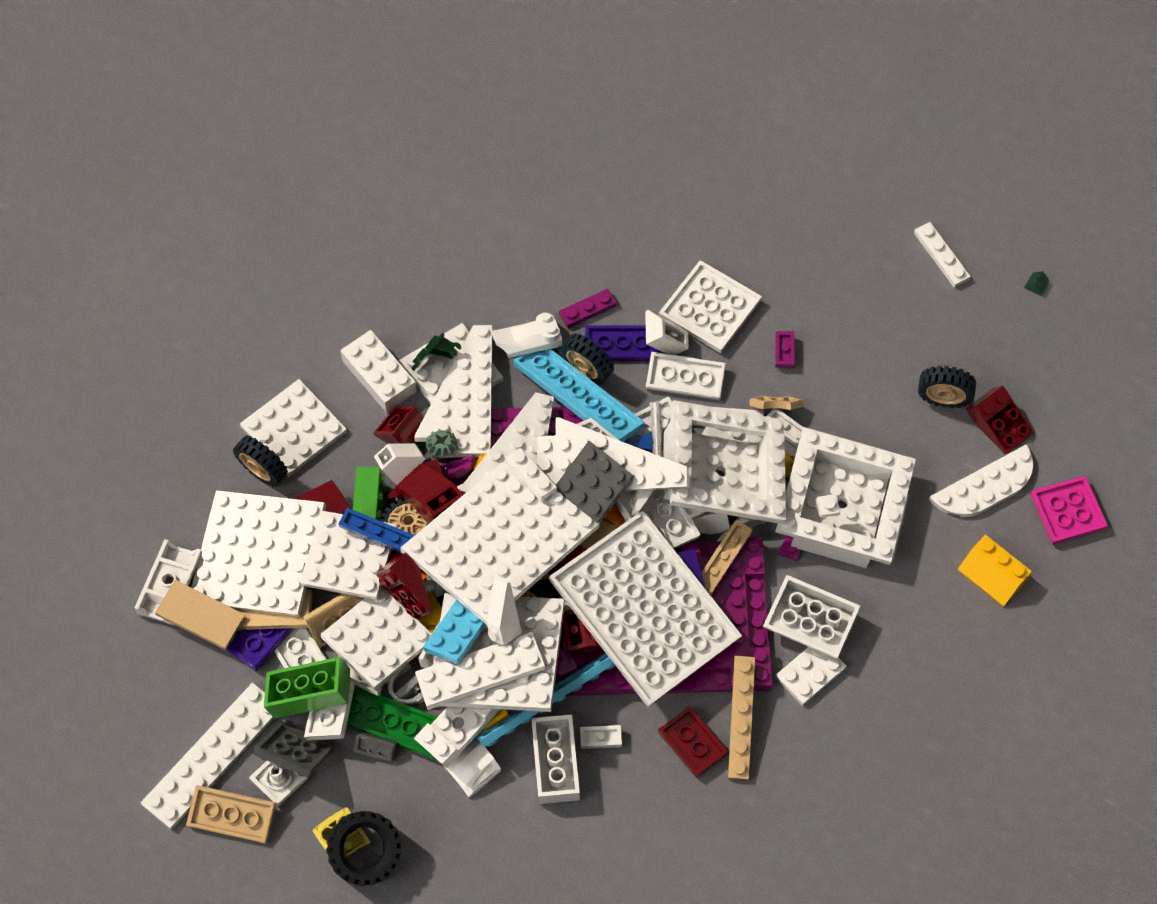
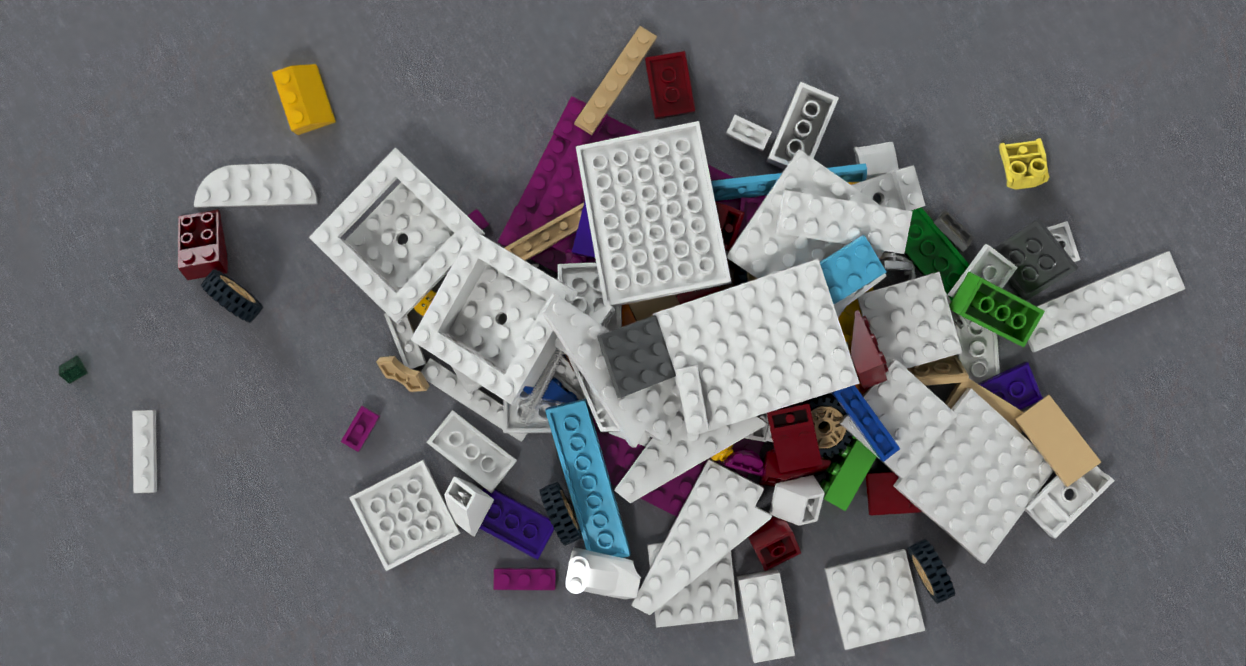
camera: 150 degrees left, 25 degrees up
(231, 814) = (1110, 234): tan tile -> none
(391, 848) = (1018, 112): black tyre -> none
(436, 346) = (701, 608): dark green plate -> none
(439, 449) = (758, 485): sand green gear -> none
(502, 613) = (801, 255): white slope -> none
(809, 674) = (527, 95): white plate -> none
(812, 616) = (499, 137): white slope -> none
(827, 506) = (422, 226): white plate -> none
(1068, 510) = (197, 121): dark pink plate -> none

